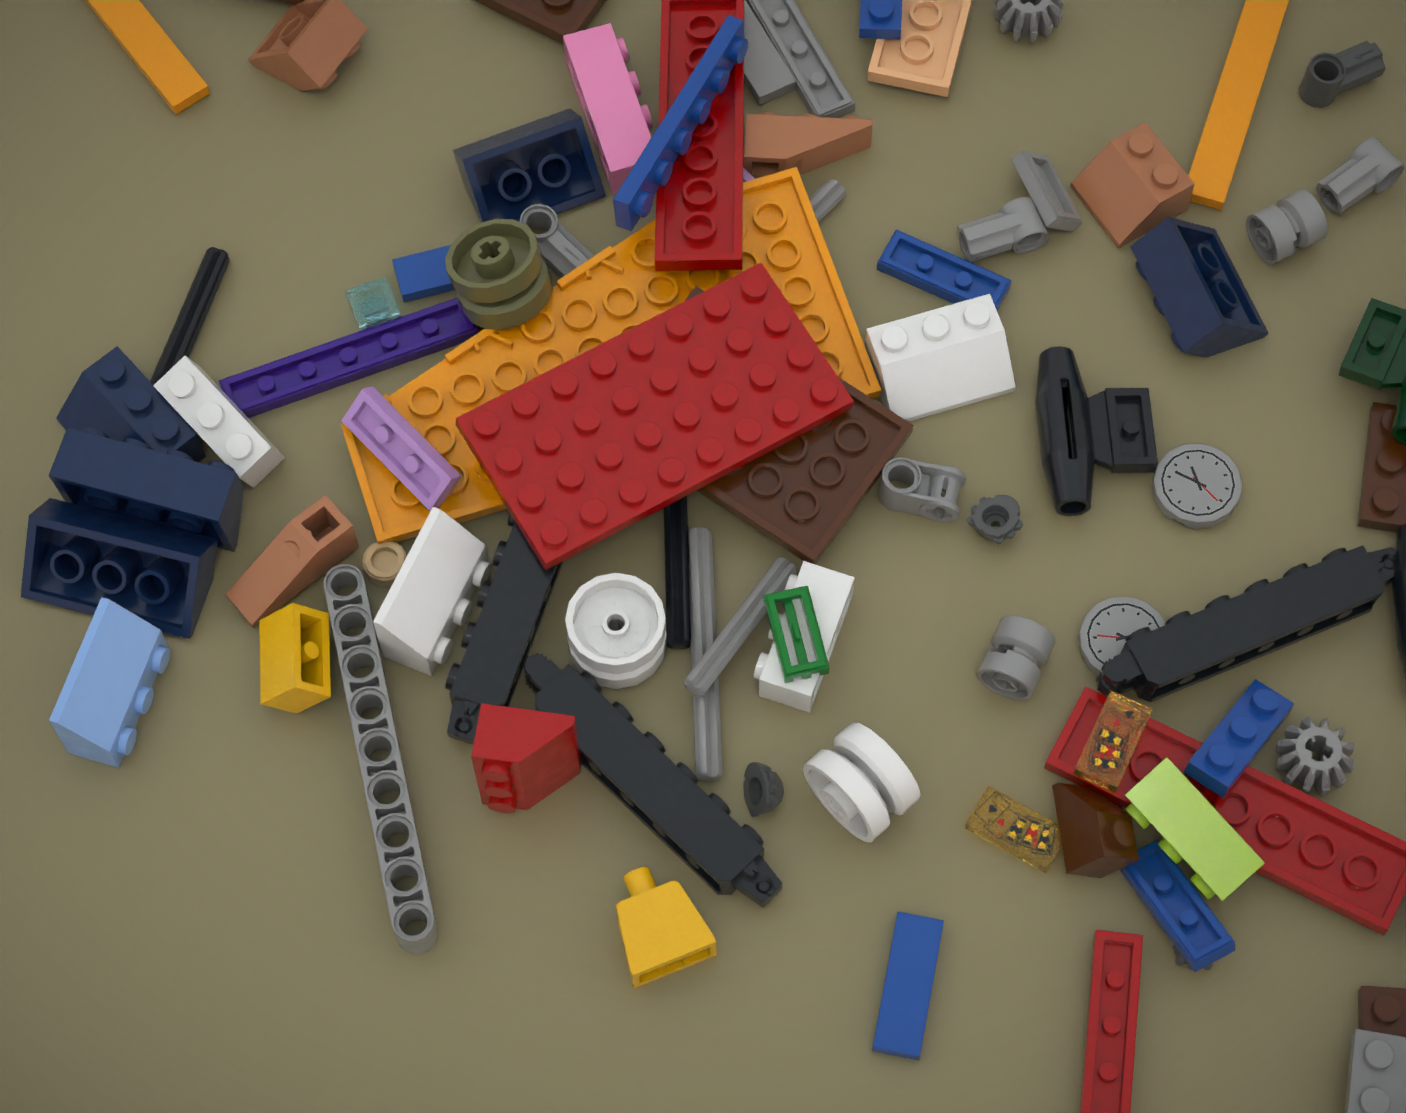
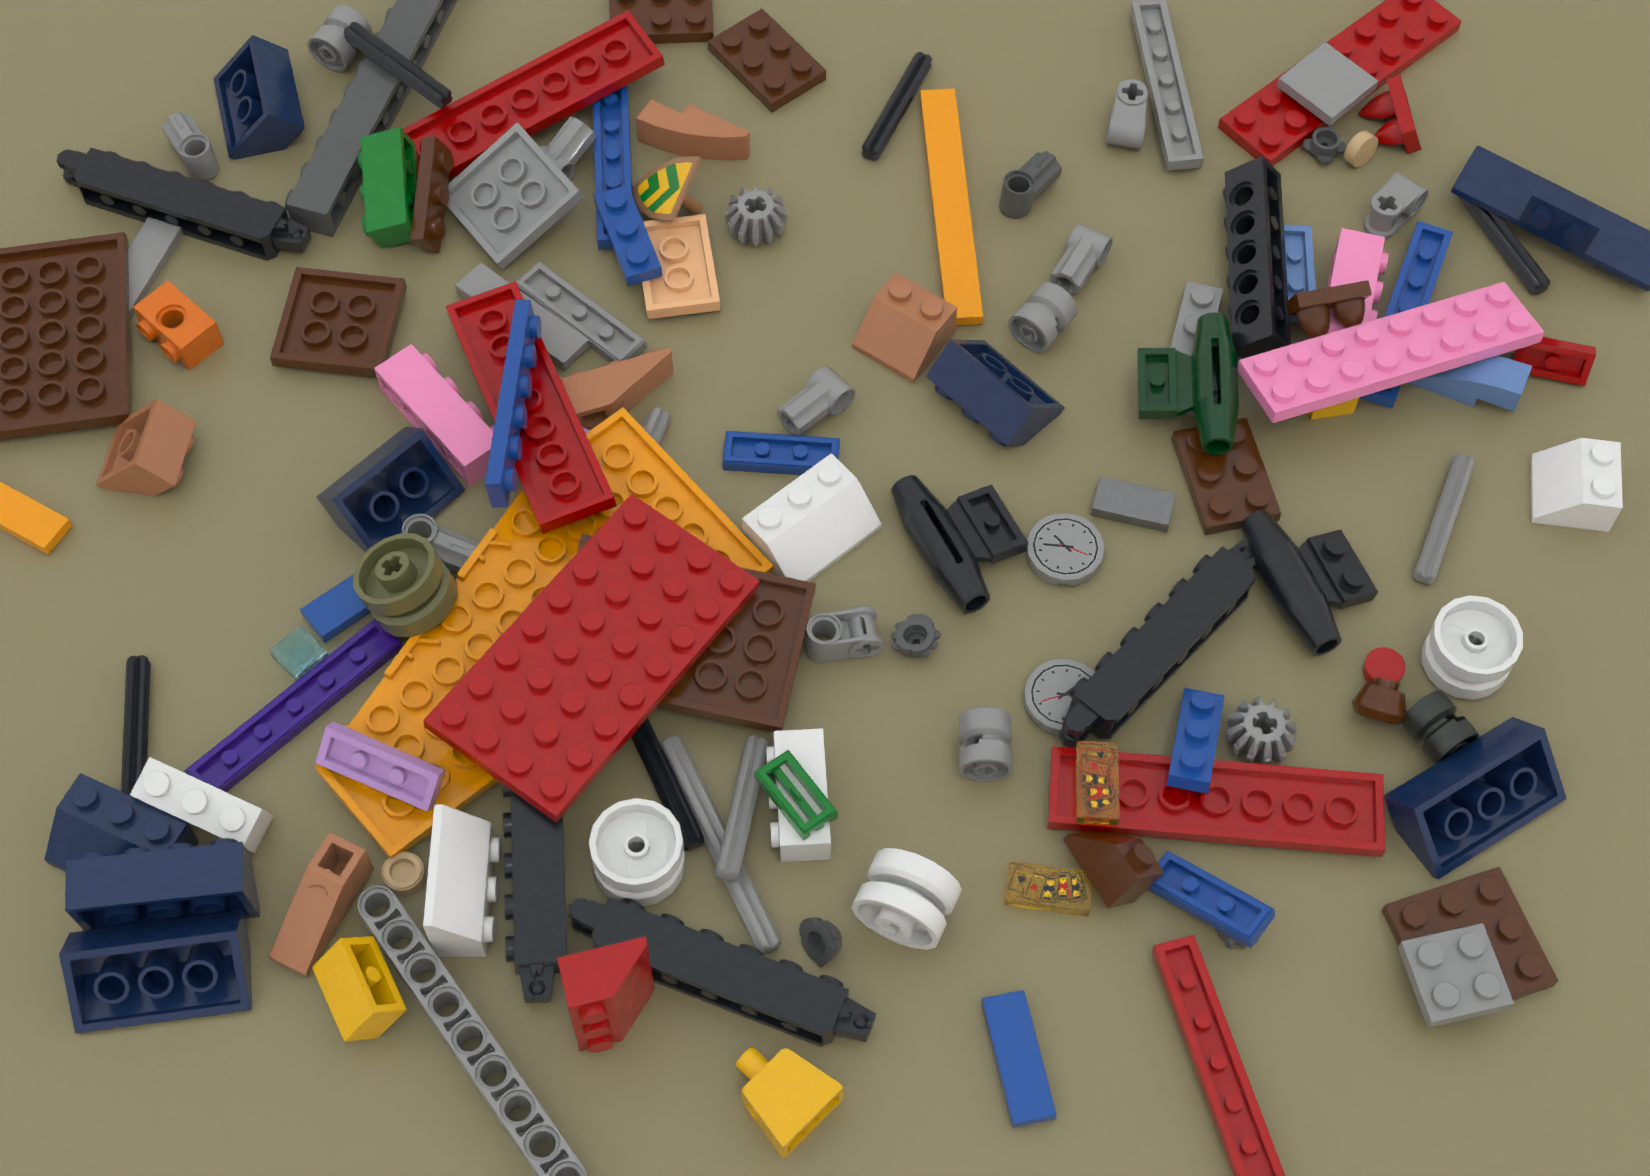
camera: 25 degrees left, 5 degrees down
(109, 685) = (197, 1080): light blue slope -> none
(1047, 191) = (837, 356): light grey tile -> none
(1192, 831) = (1197, 830): lime brick -> none
(1293, 464) = (1133, 504): none -> flat silver tile

